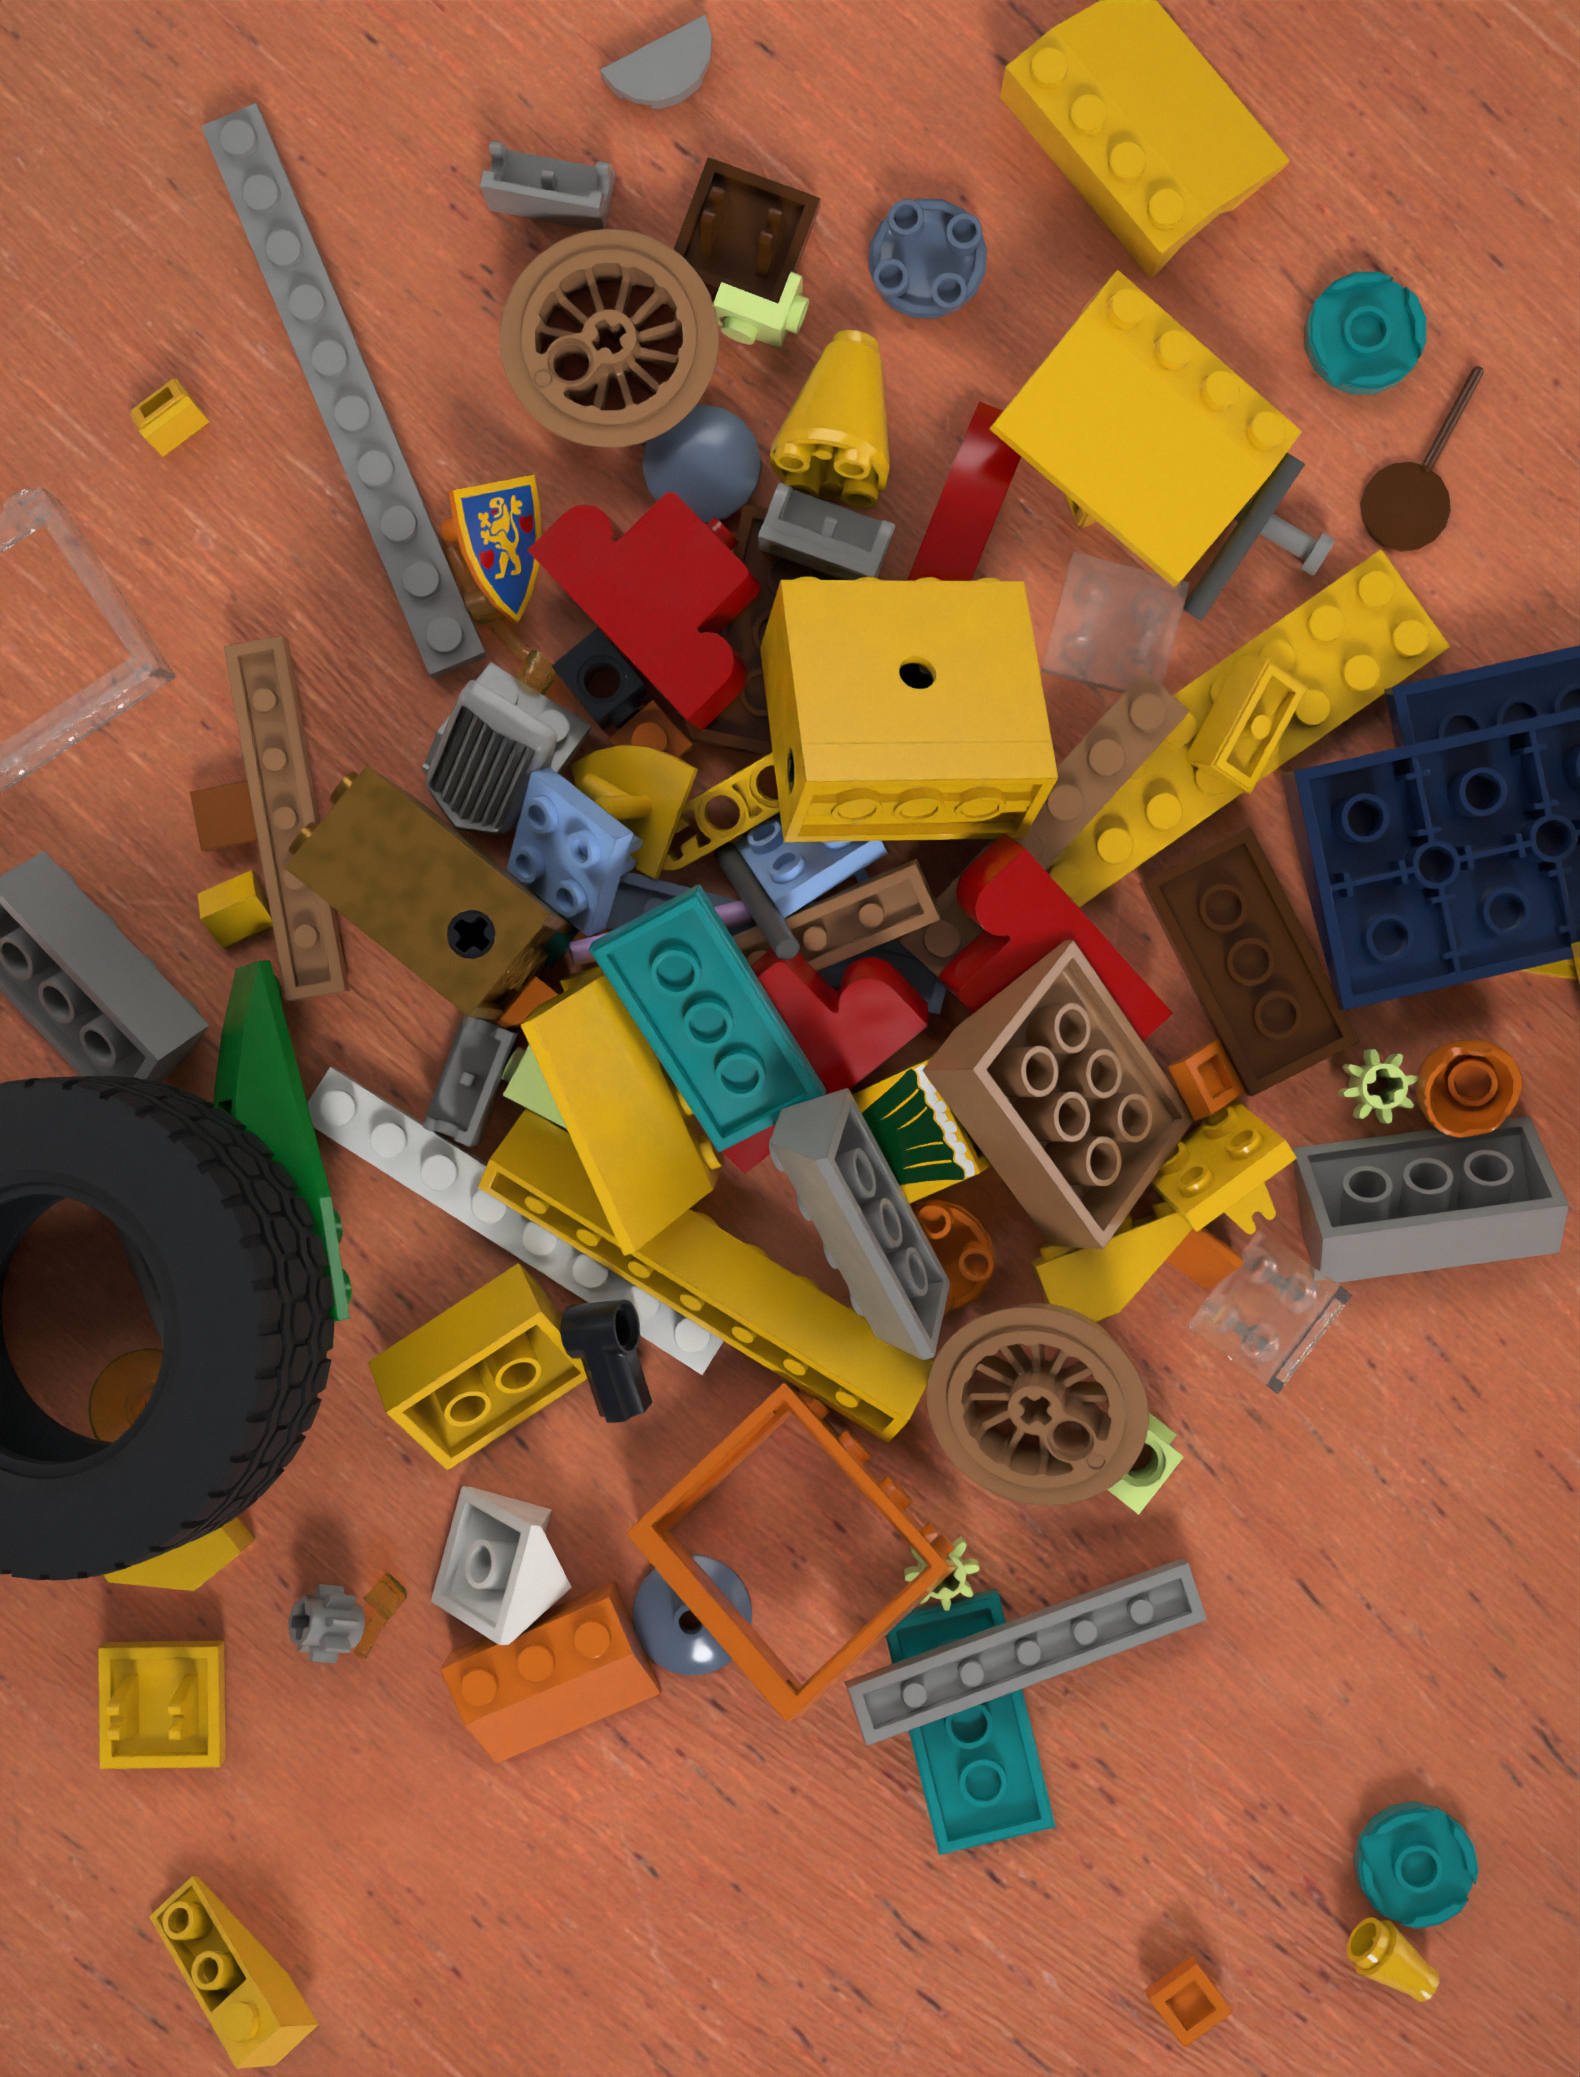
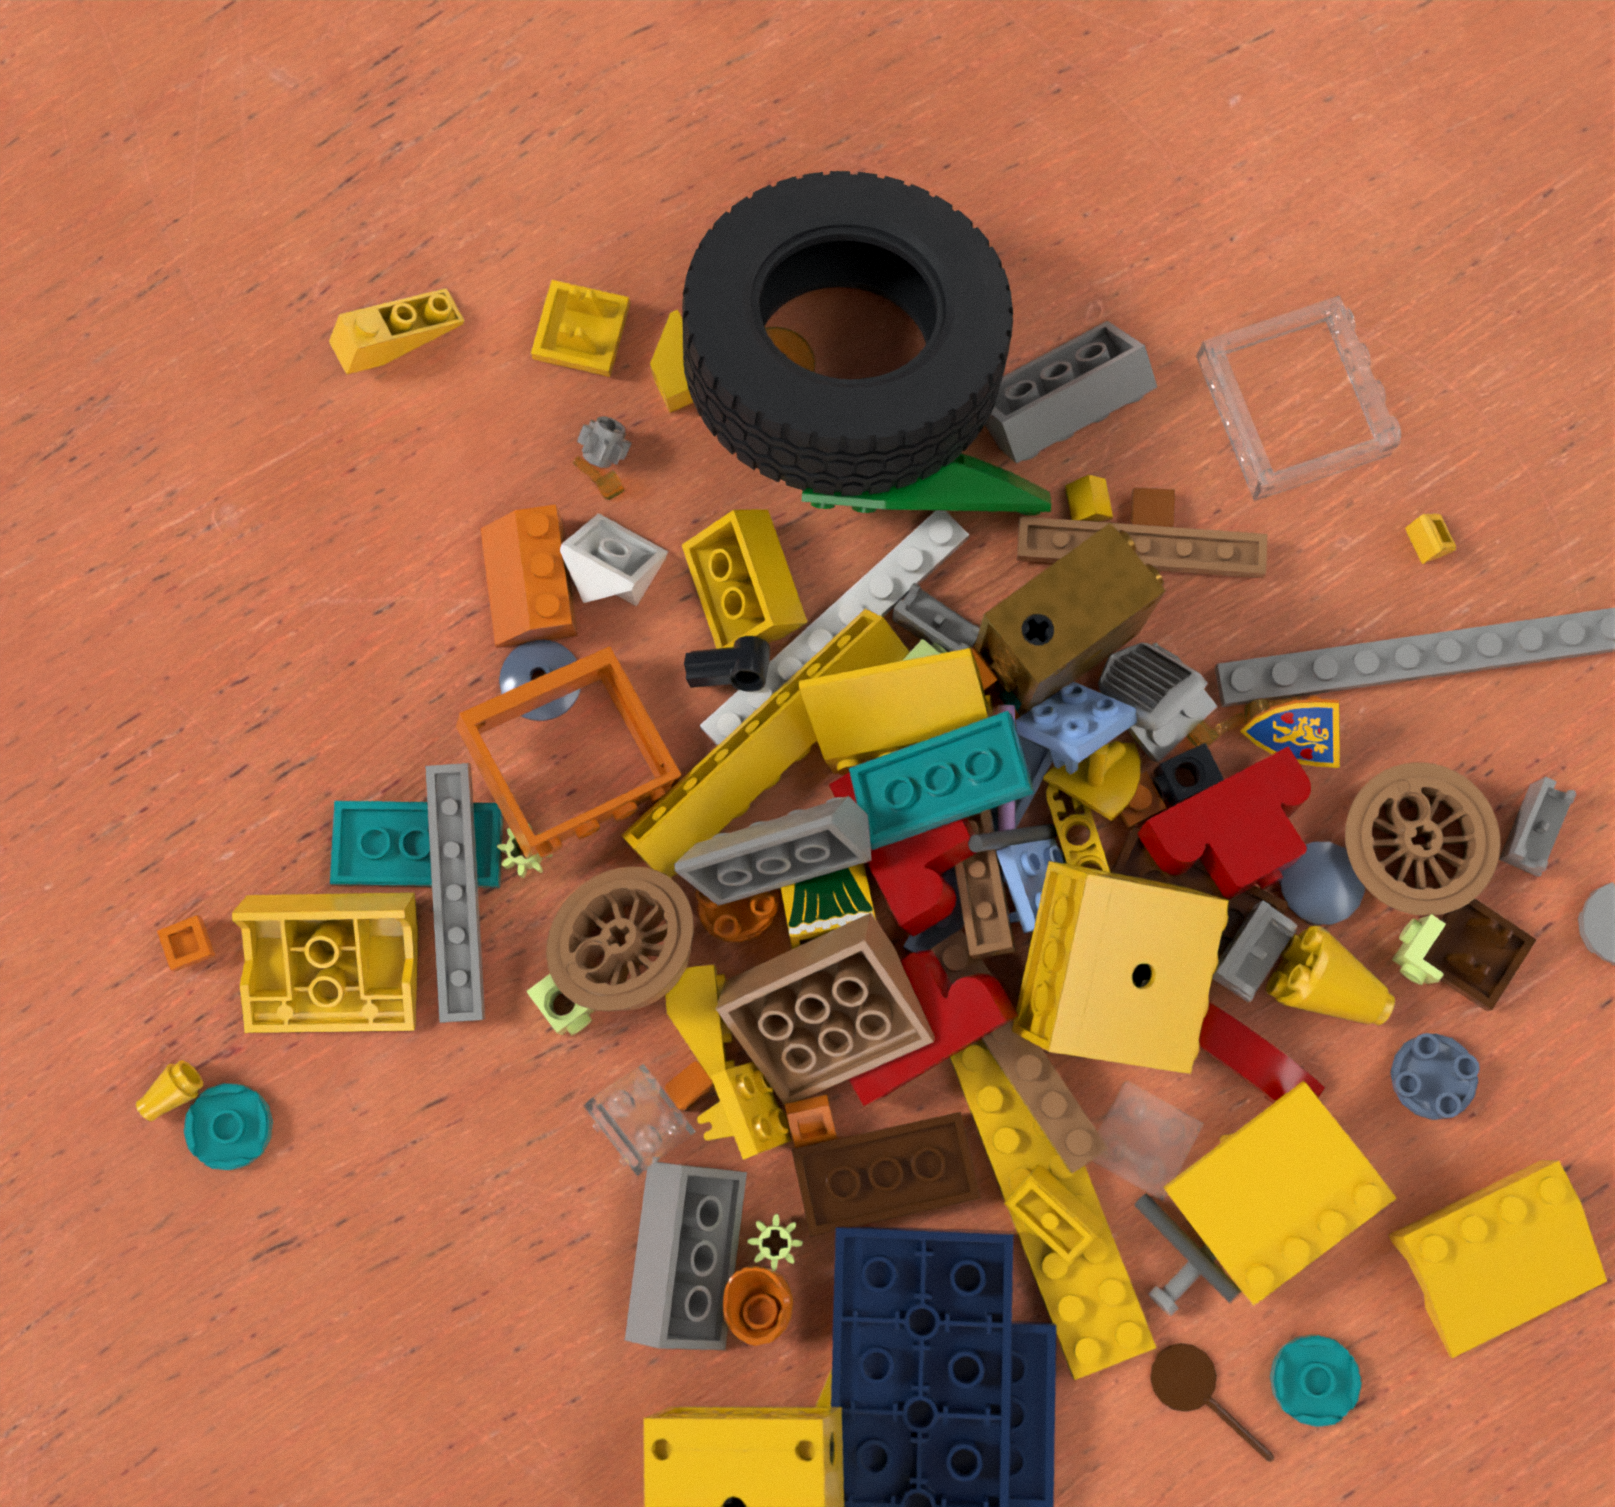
camera: 105 degrees right, 10 degrees down
(1162, 1796) = (328, 962): none -> yellow piece

